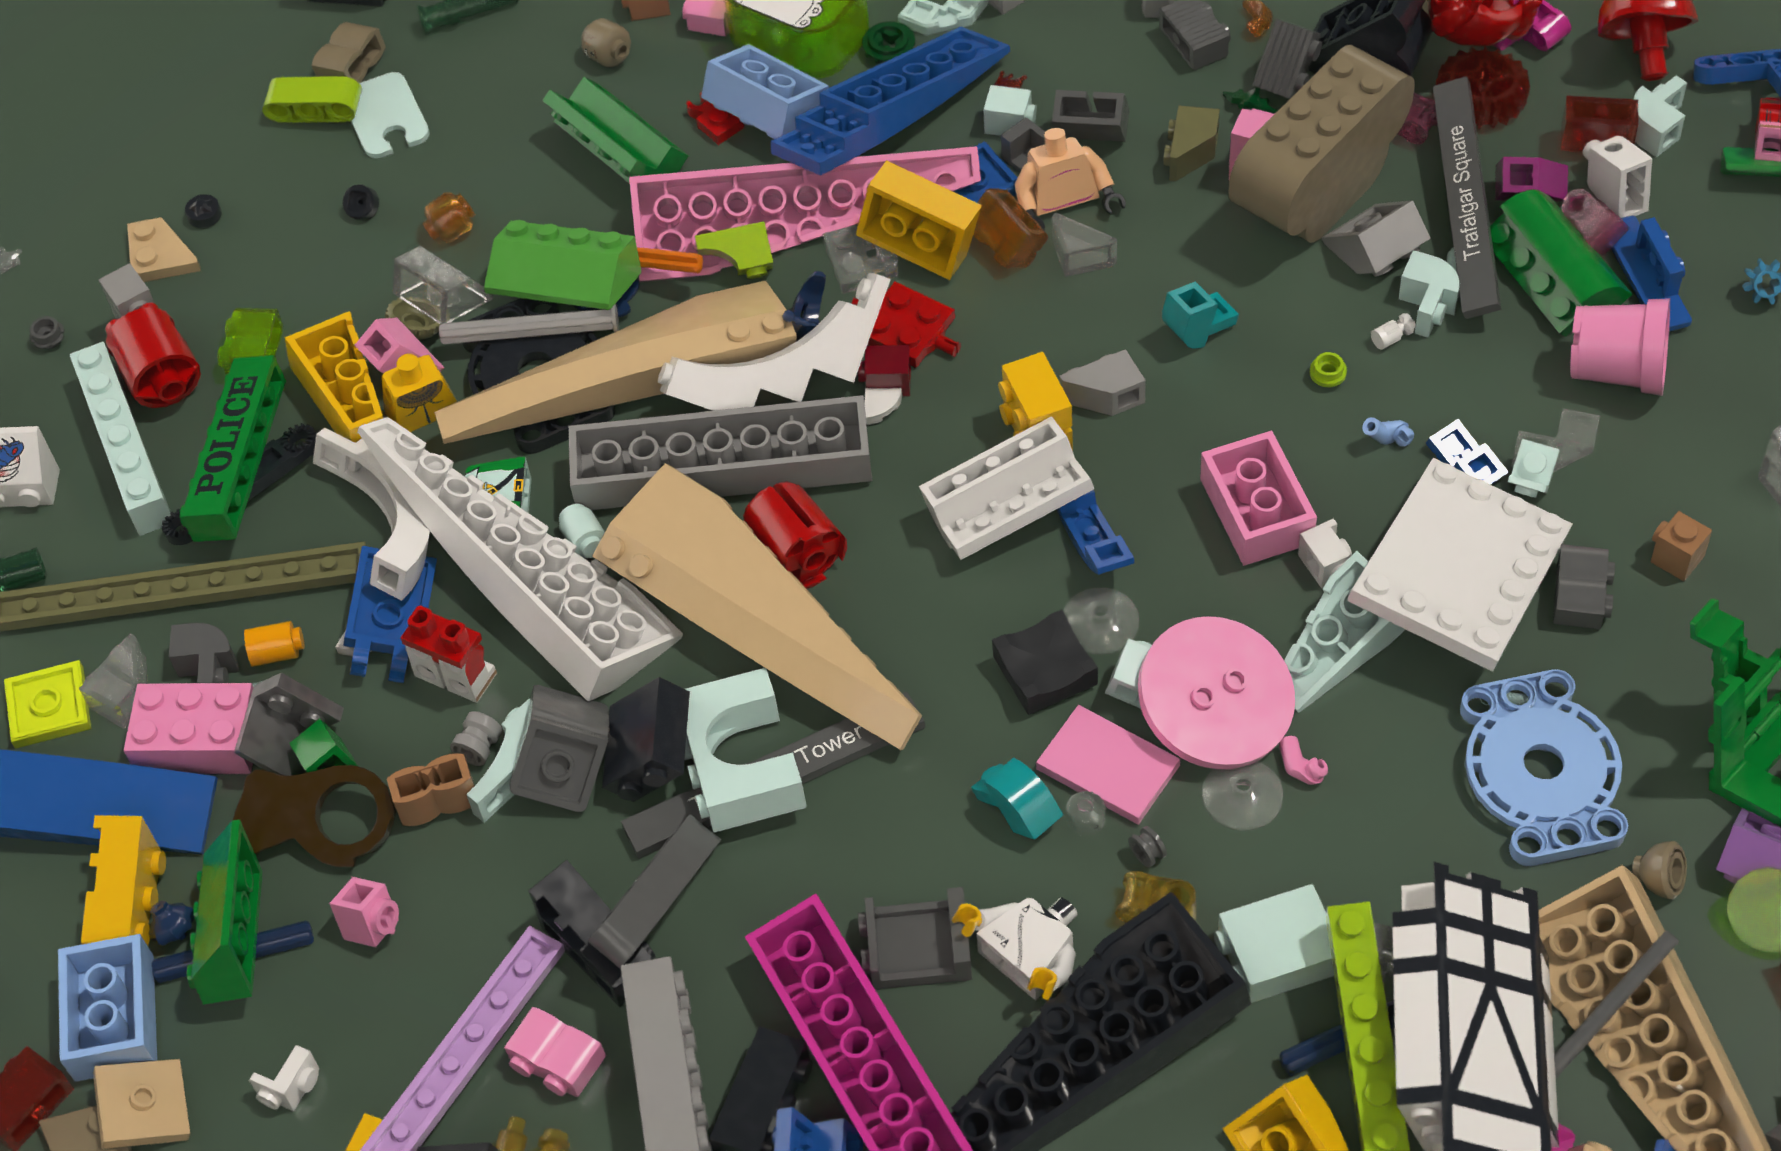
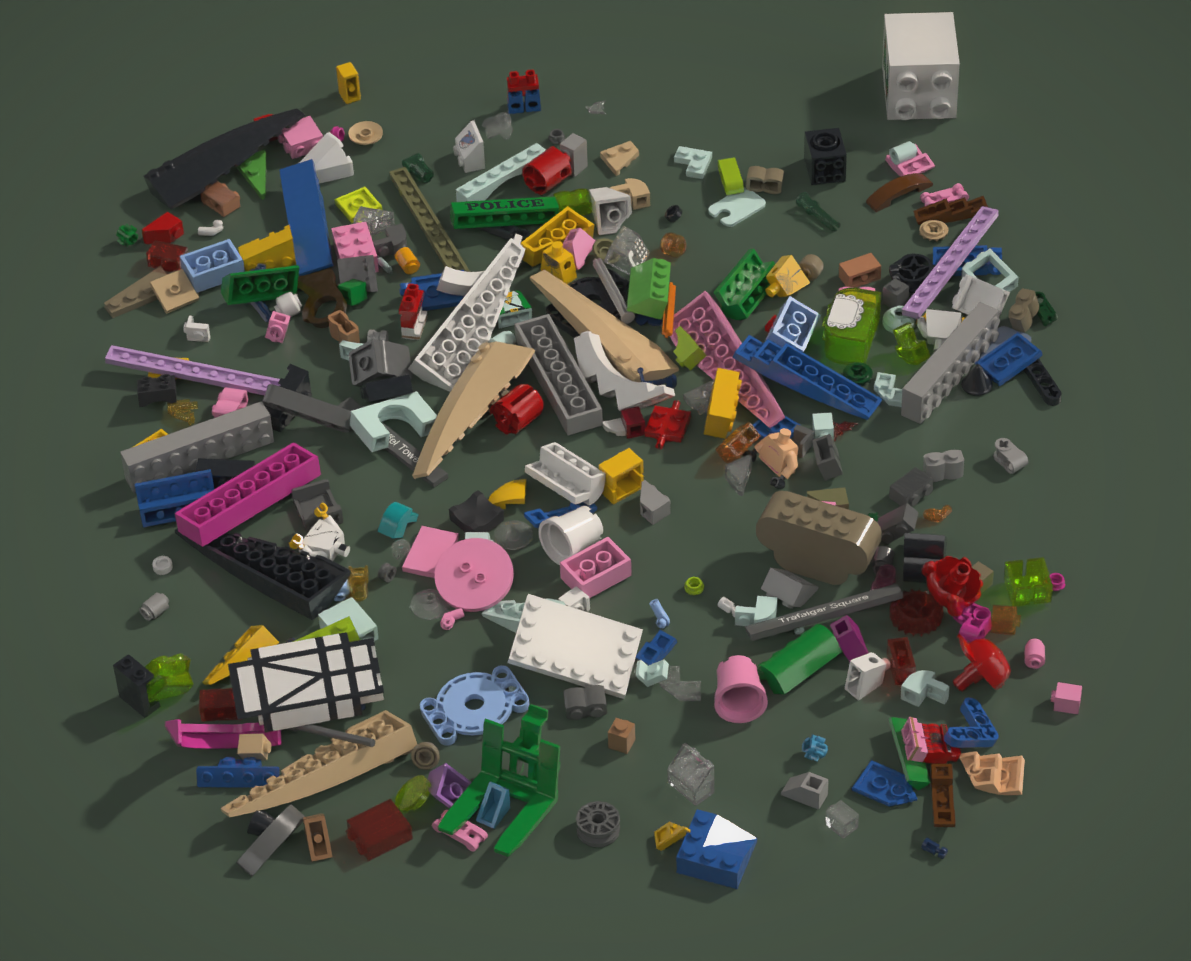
camera: 70 degrees right, 10 degrees down
(203, 211) = (649, 163): black tile -> none
(229, 141) = (696, 160): none -> light aqua plate
(277, 243) = (637, 190): none -> tan brick
(297, 884) = (288, 304): none -> white head
(304, 284) = (609, 209): none -> white slope
(626, 73) = (785, 277): none -> yellow torso
(996, 598) = (510, 493): none -> yellow brick
(1170, 514) = (569, 533): none -> white piece
(1196, 314) = (701, 524): teal brick -> none
(1594, 220) = (828, 669): clear pink piece -> none
(1652, 267) = (806, 701): blue bracket -> none

